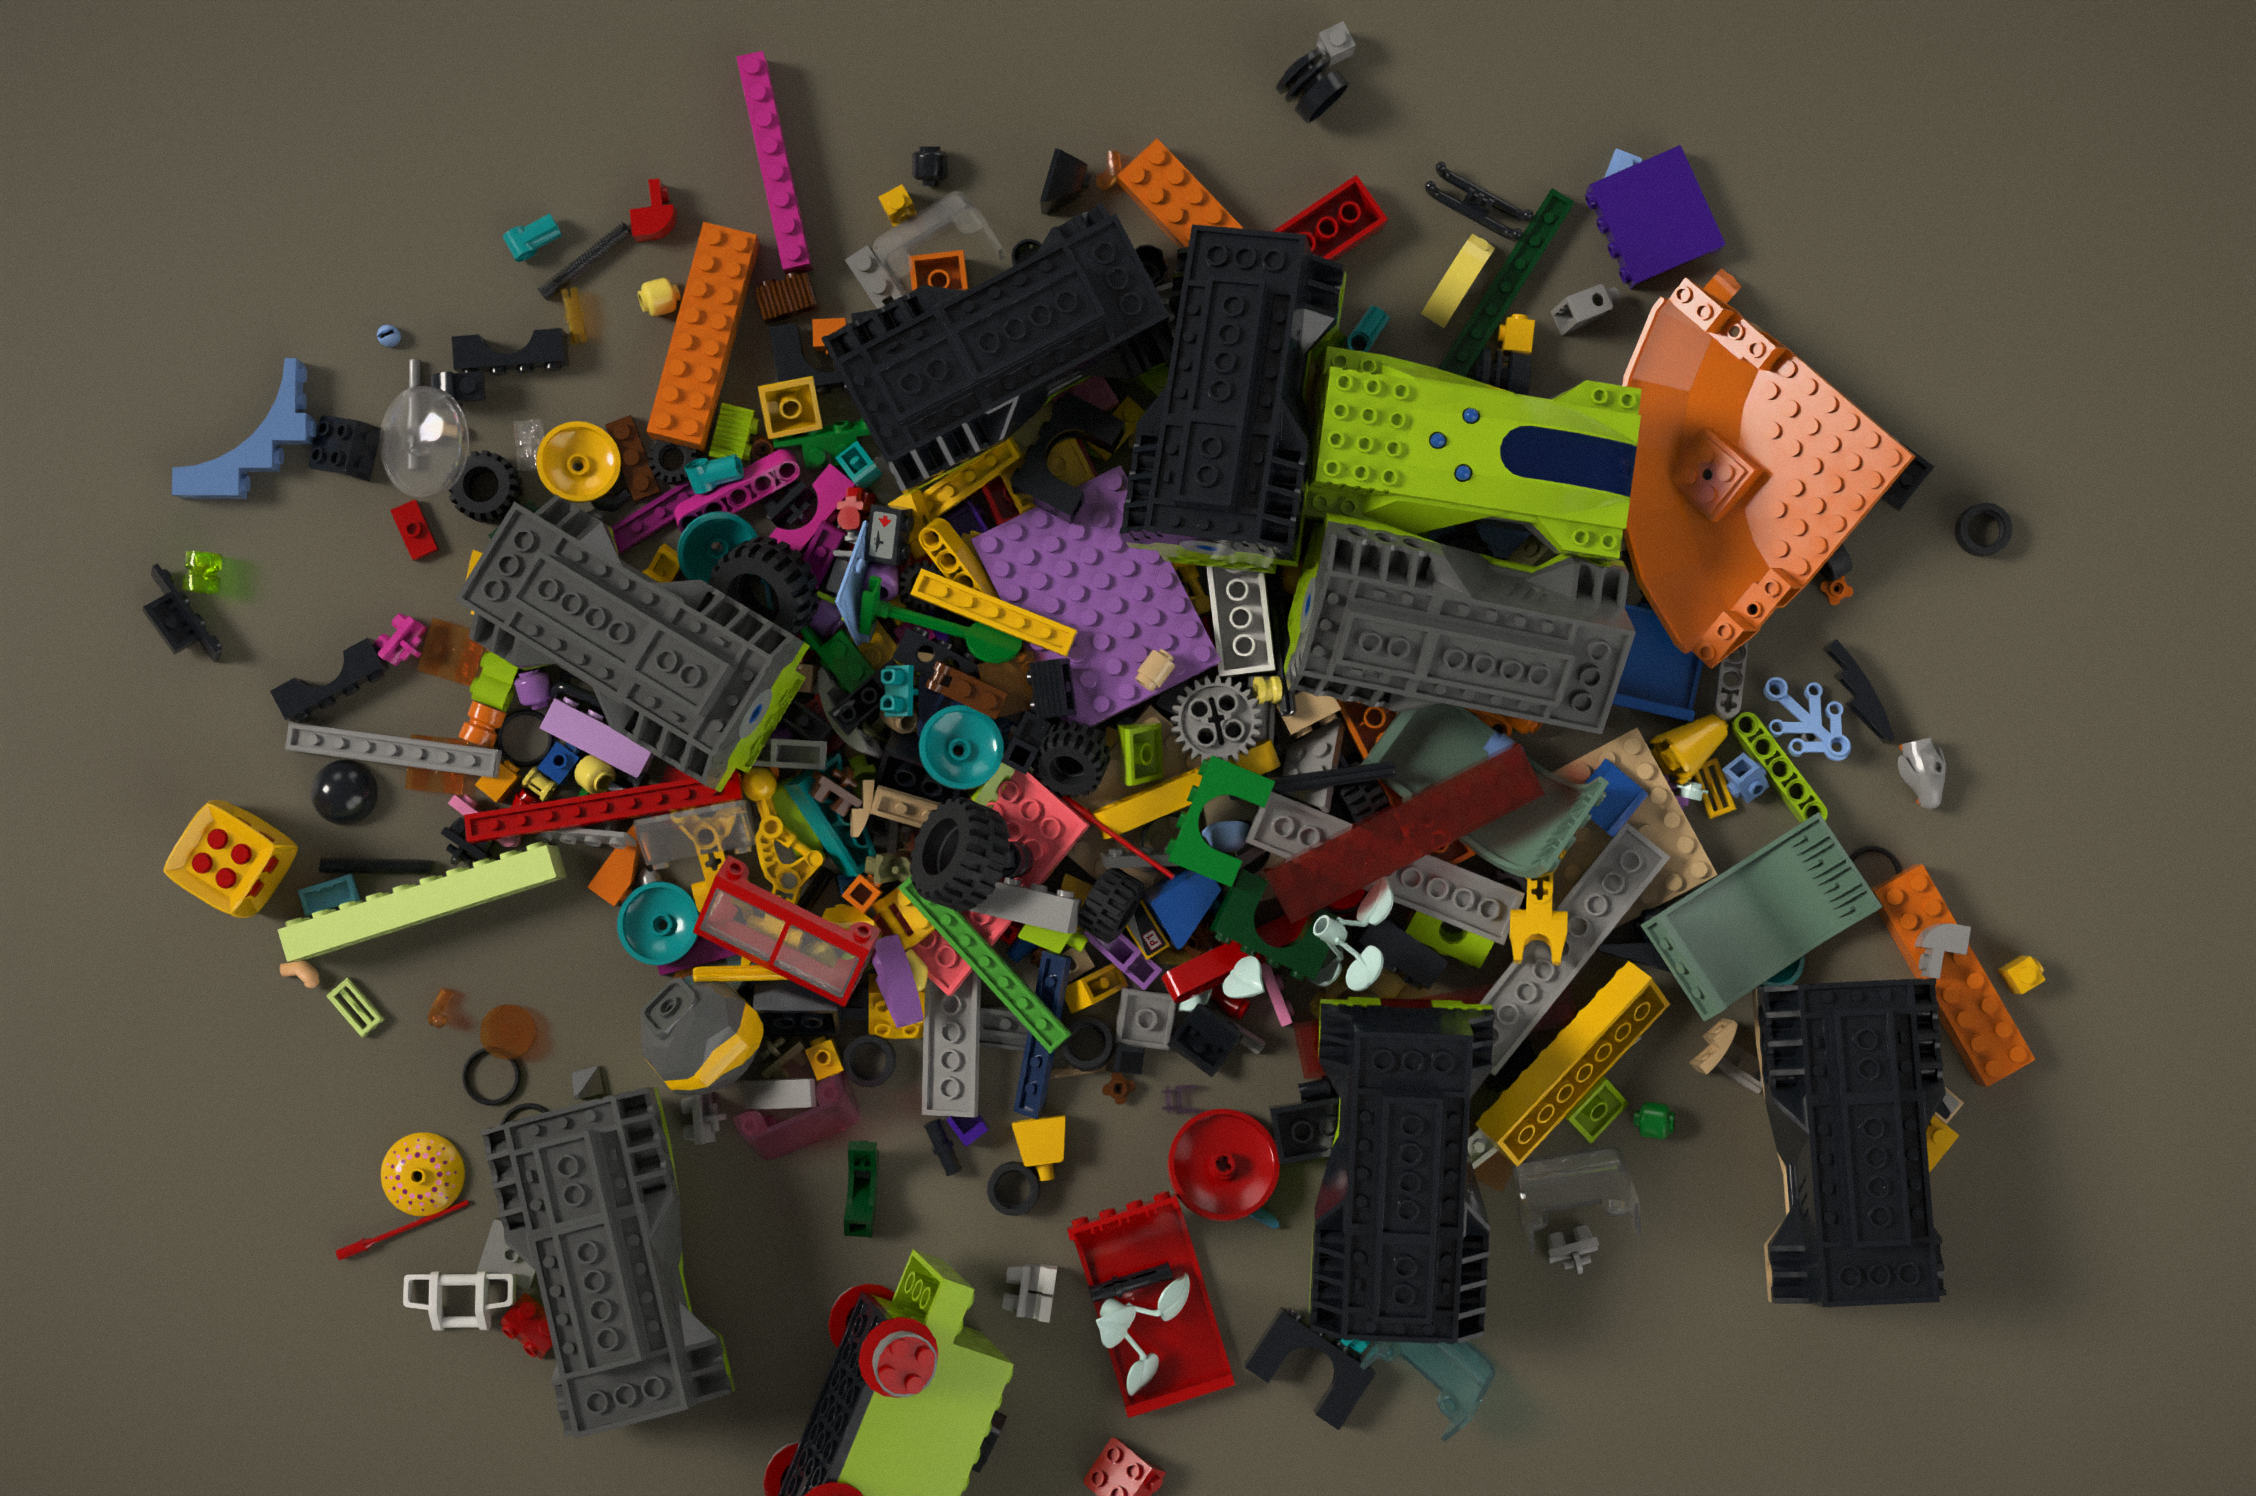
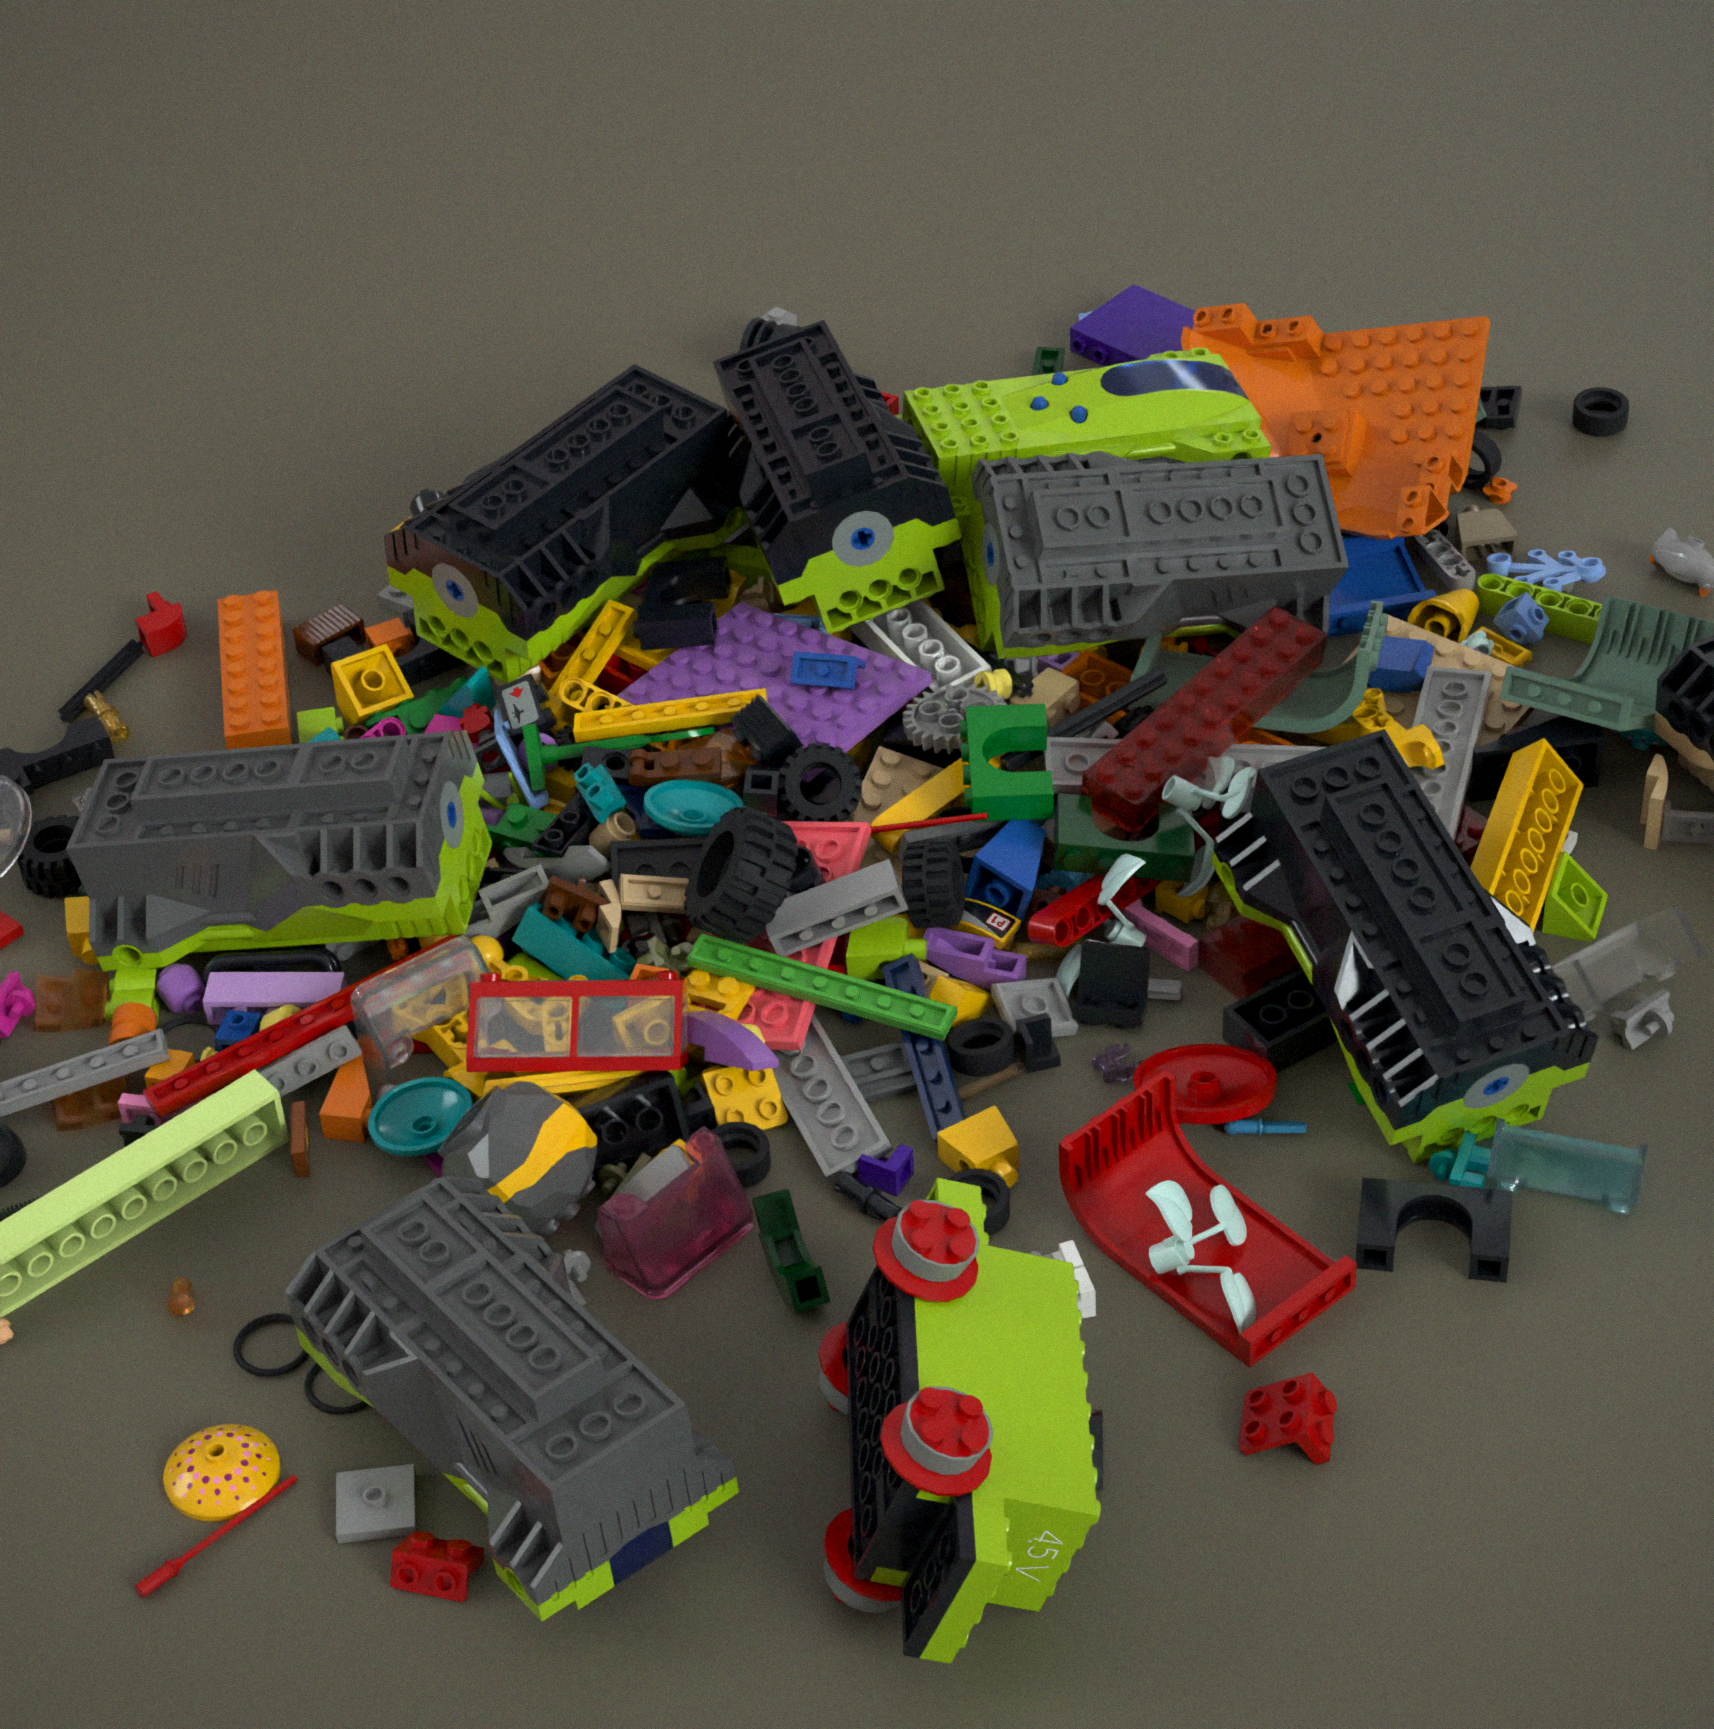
camera: 25 degrees left, 45 degrees down
(363, 999) = (65, 1346): yellowish green tile -> none
(438, 1280) = (292, 1586): white bar -> none
(508, 1032) = (264, 1291): clear orange tile -> none
(525, 240) = (33, 683): teal piece -> none
(570, 893) = (300, 1139): none -> dark orange tile
(658, 297) = (192, 674): light yellow head -> none
(774, 162) = (269, 551): dark pink brick -> none
(1110, 1088) = (1041, 1078): reddish brown plate -> none
(1130, 1282) = (1156, 1230): black pin -> none
(1137, 624) = (825, 670): none -> blue panel
(1140, 753) = (884, 769): lime slope -> none
(1155, 669) = (866, 684): tan brick -> none
(1477, 203) = (968, 374): black piece -> none
(1654, 1120) = (1645, 888): green head -> none
(1783, 647) = (1484, 533): none -> dark tan torso
(1864, 699) = (1580, 536): black slope -> none

